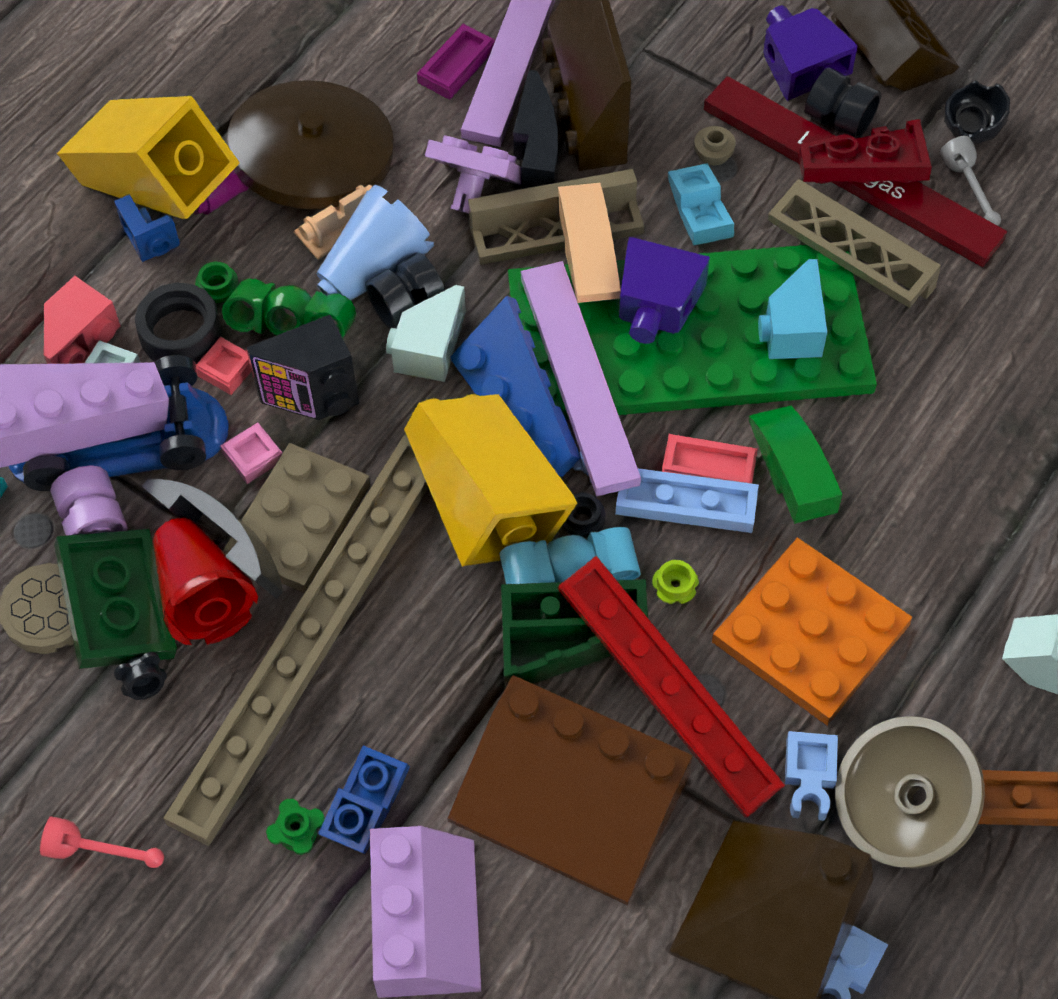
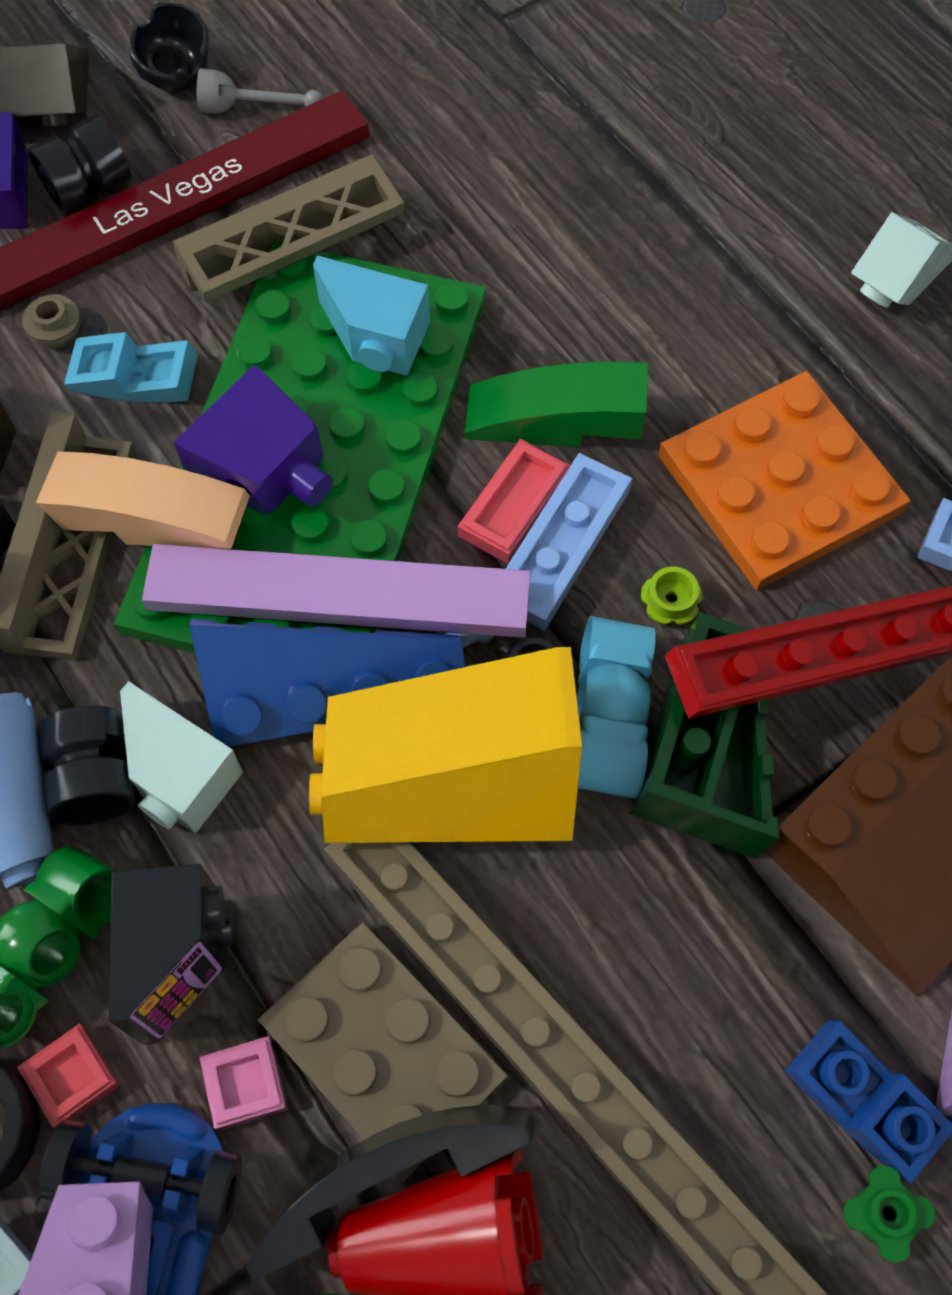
camera: 70 degrees left, 5 degrees up
(879, 157) = (175, 166): dark red wing -> none

